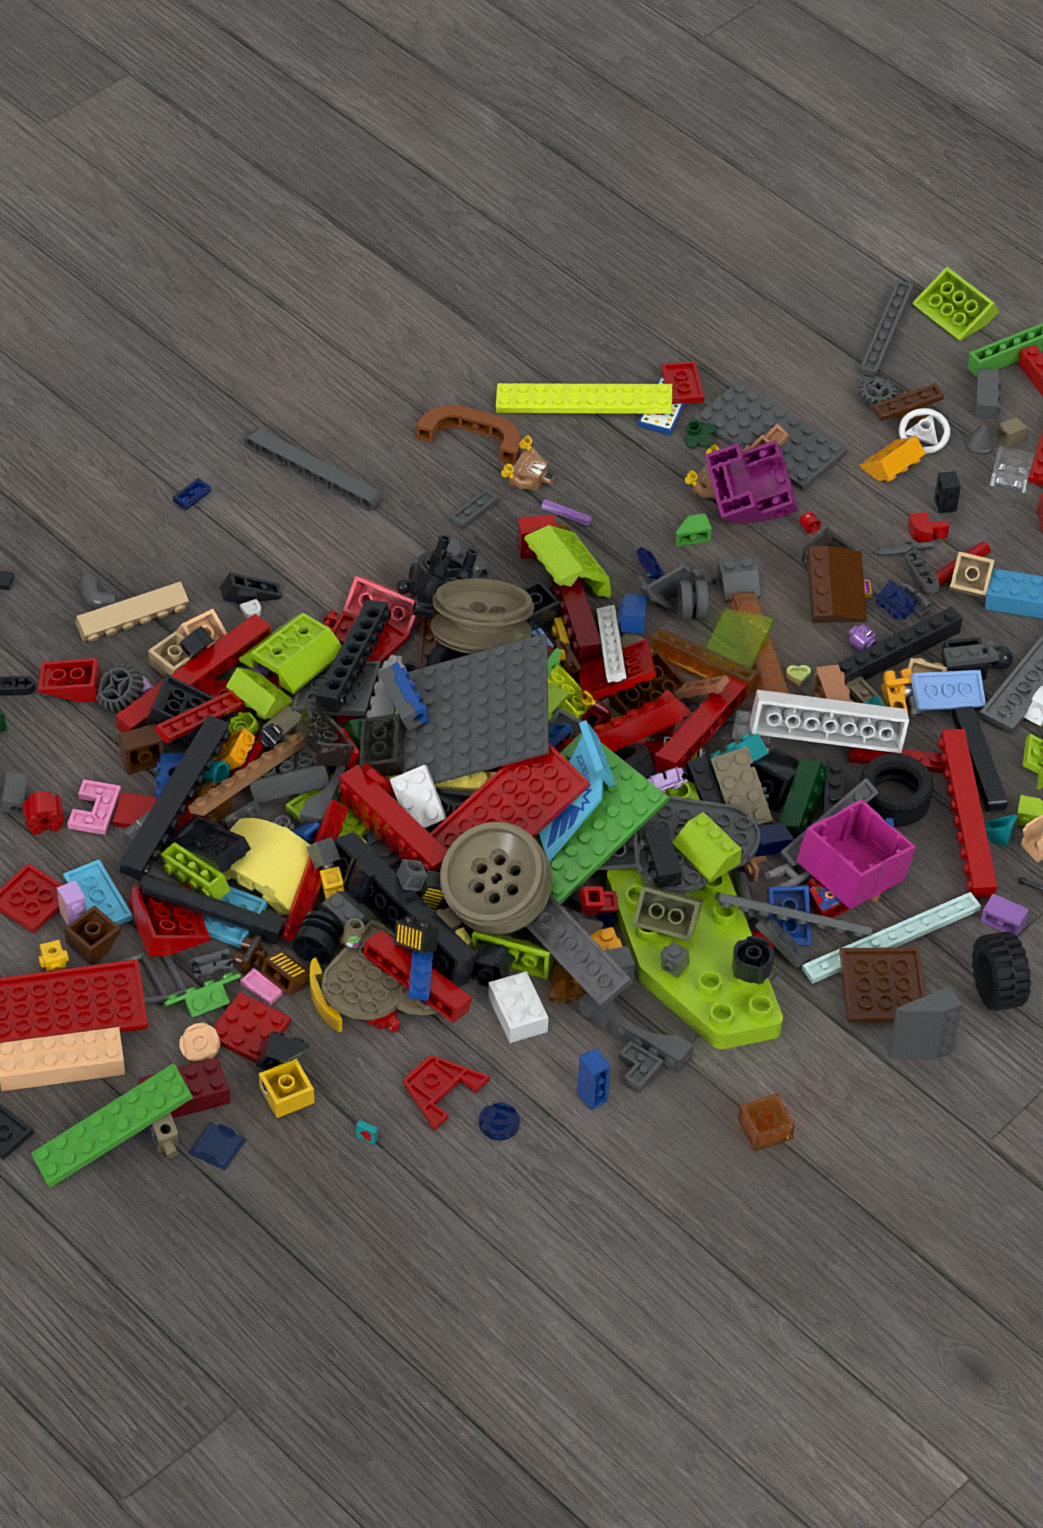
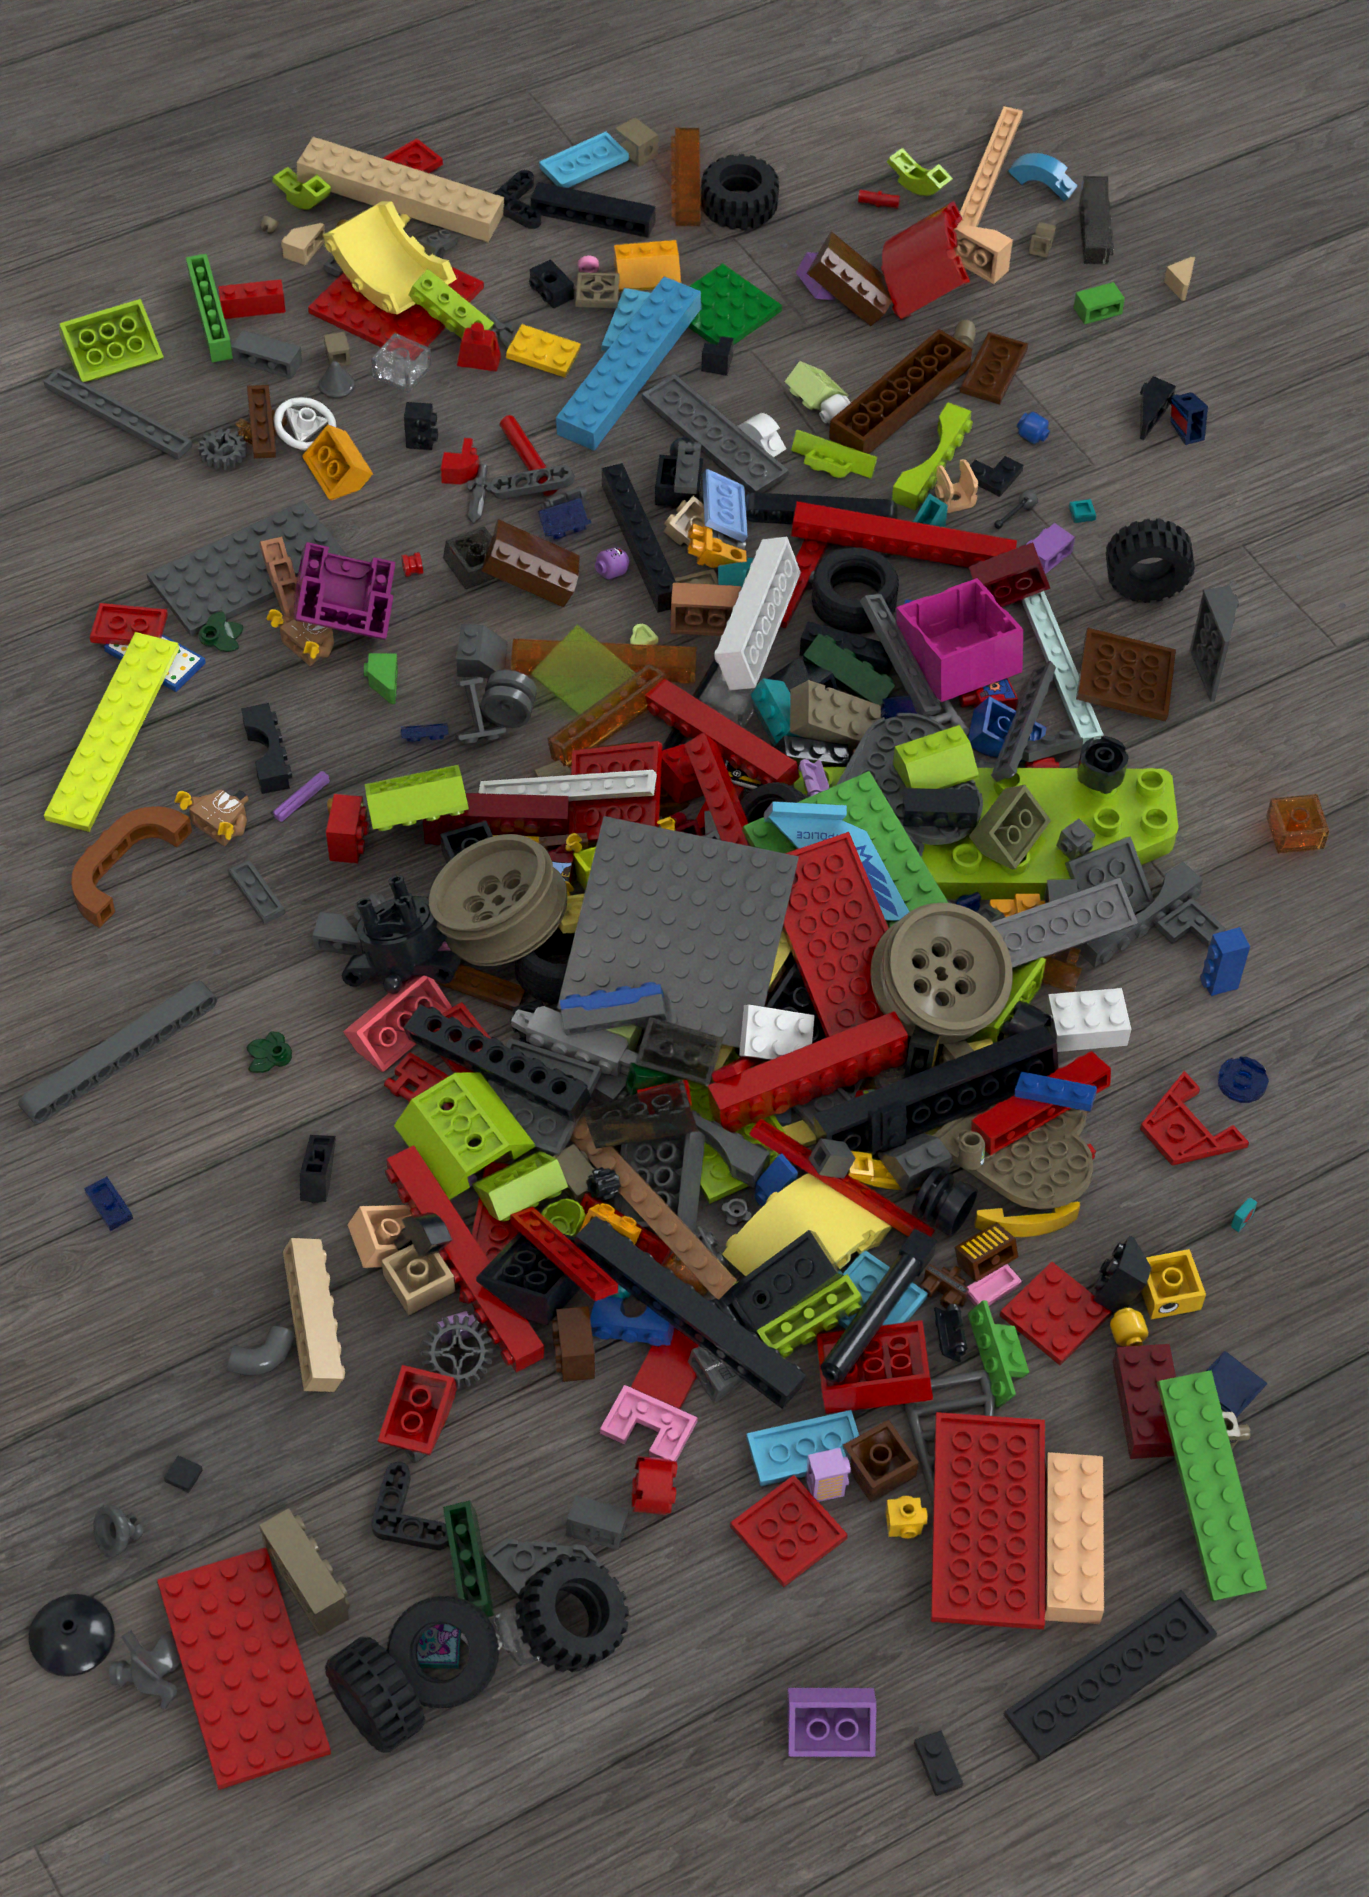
camera: 75 degrees left, 5 degrees up
(199, 1042) = (1074, 1370): light nougat tile -> none
(242, 1069) = (1129, 1327): none -> yellow head
(251, 608) = (346, 1175): white tile -> none
(338, 546) = (269, 1052): none -> dark green plate
(412, 875) = (908, 1062): dark grey brick -> none
(416, 934) = (1005, 1078): pearl dark grey brick -> none
(581, 489) = (271, 768): none -> black arch
(595, 900) = (967, 894): red brick -> none
(632, 613) = (511, 761): blue brick -> none
(652, 997) = (1113, 862): none -> dark grey plate
(702, 687) = (661, 715): nougat plate -> none
(946, 882) = (1012, 575): none -> dark red brick
(971, 574) = (558, 437): tan brick -> none

